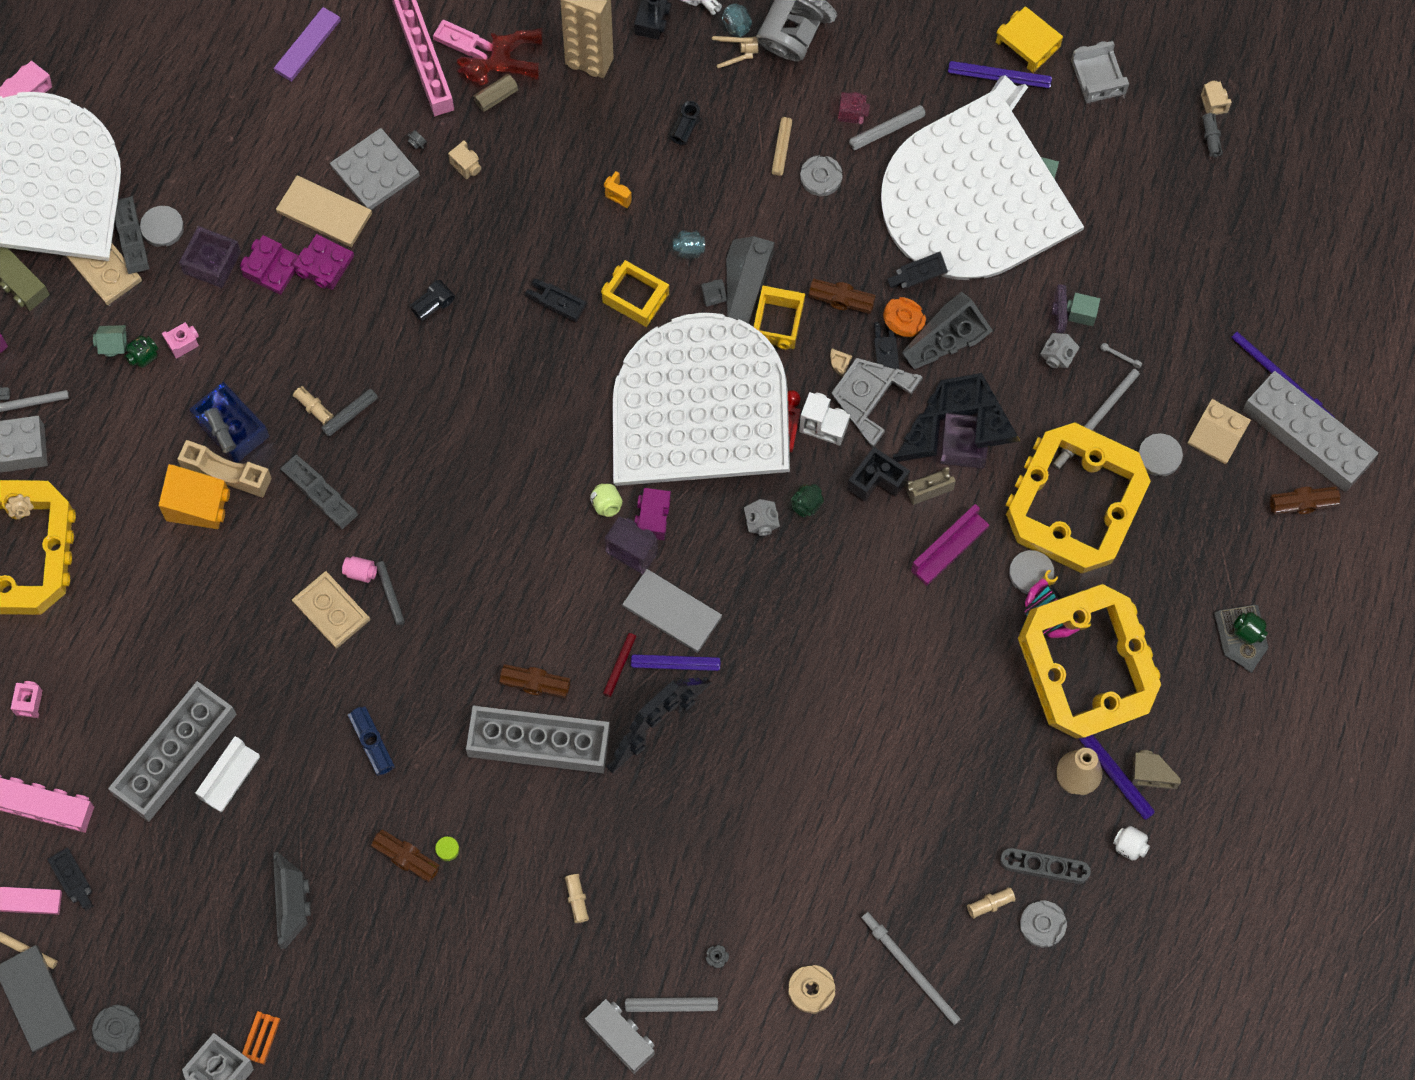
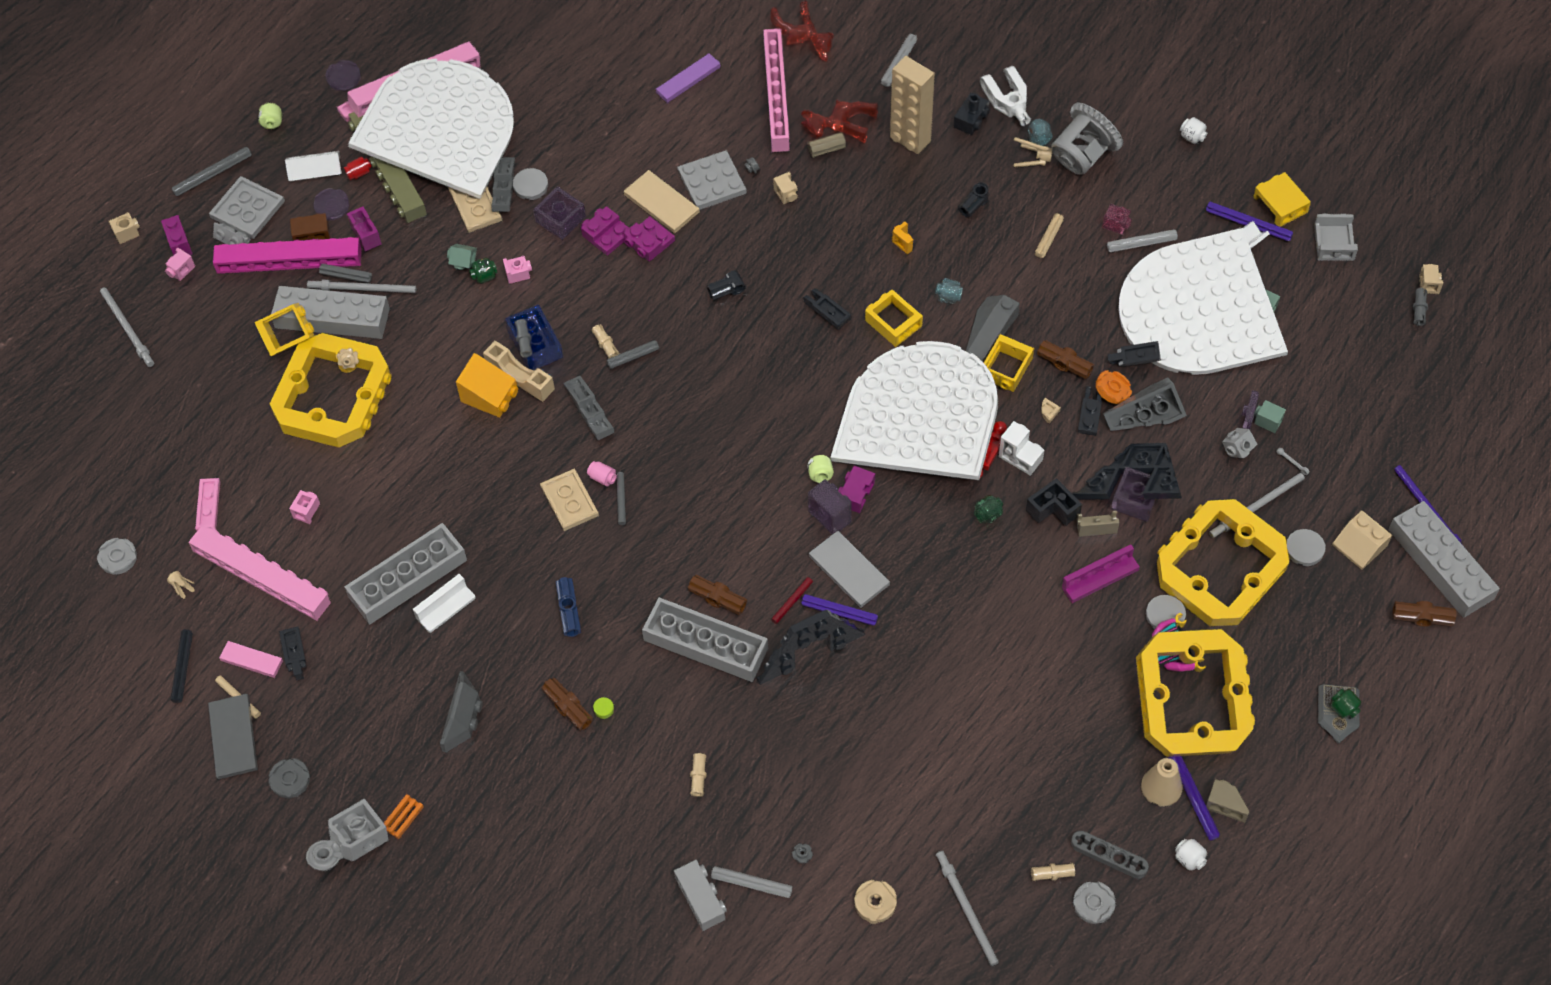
camera: 20 degrees right, 10 degrees down
(461, 40) = (811, 99): bright pink hinge -> none
(713, 292) = (958, 332): dark grey tile -> none
(761, 517) = (946, 512): light grey brick -> none
(821, 175) = (1075, 265): light grey tile -> none
(862, 390) = (1062, 434): light grey wing -> none

